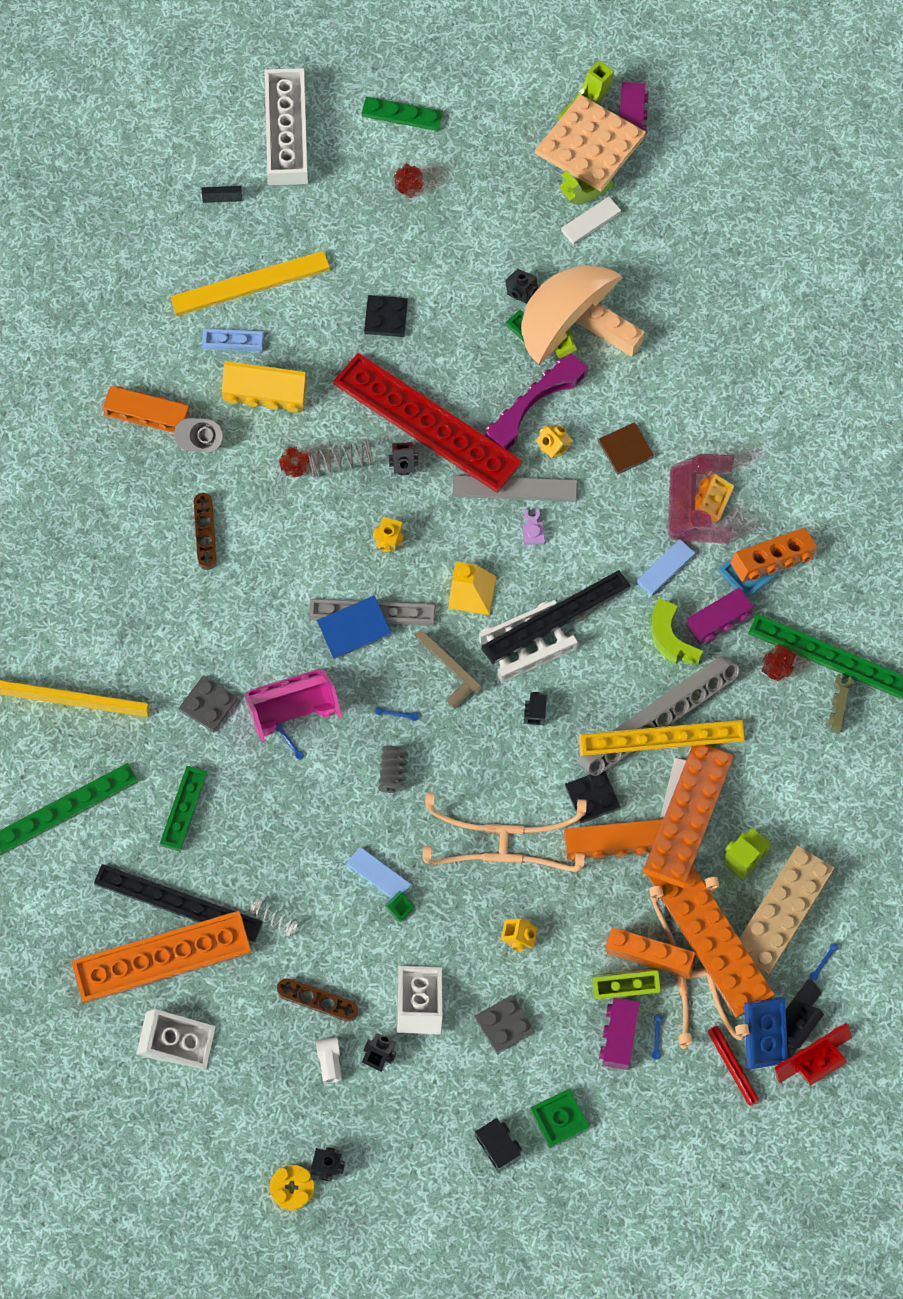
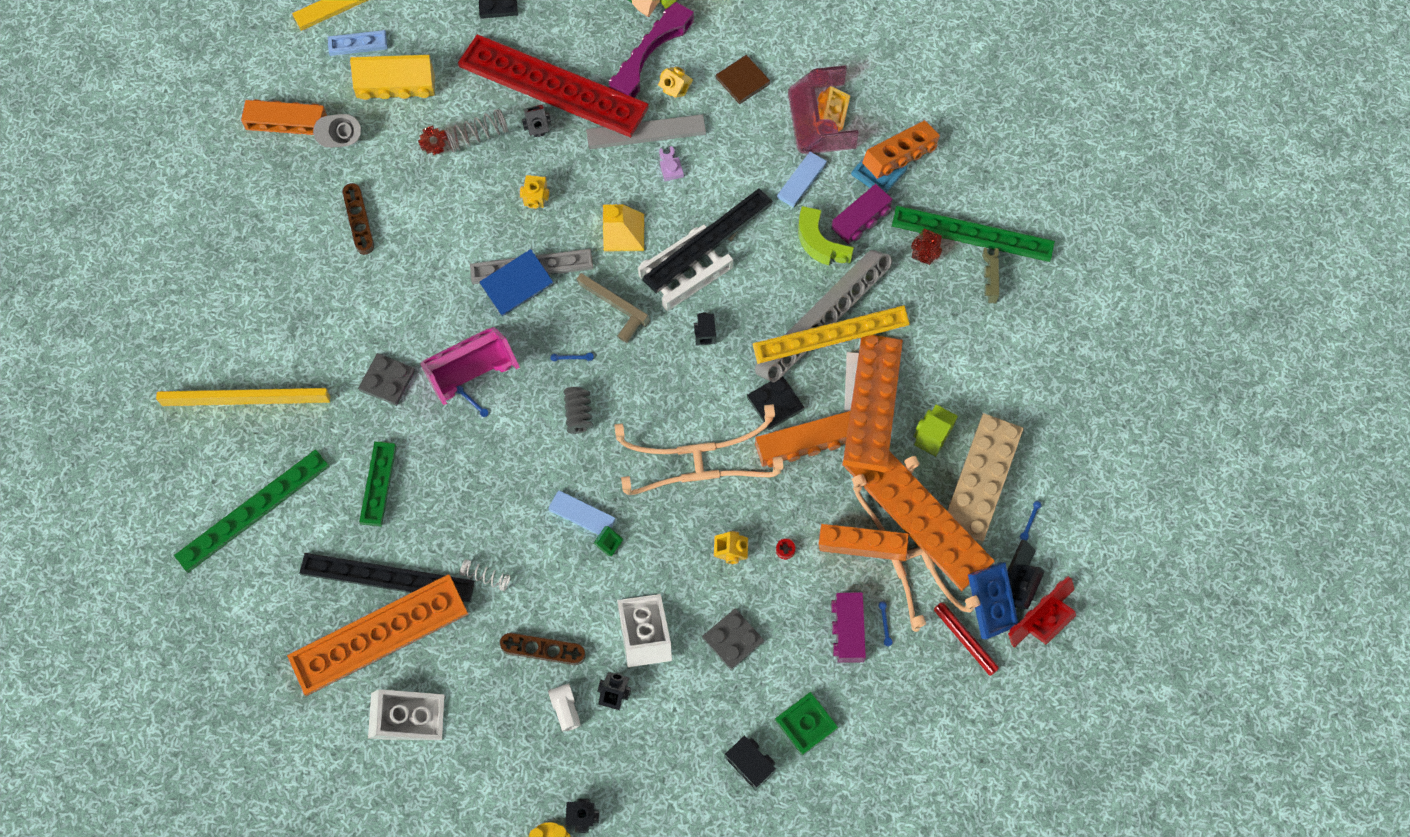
camera: 10 degrees left, 0 degrees up
(579, 942) = (780, 553): none -> red bush
(626, 983) = (845, 577): lime brick -> none

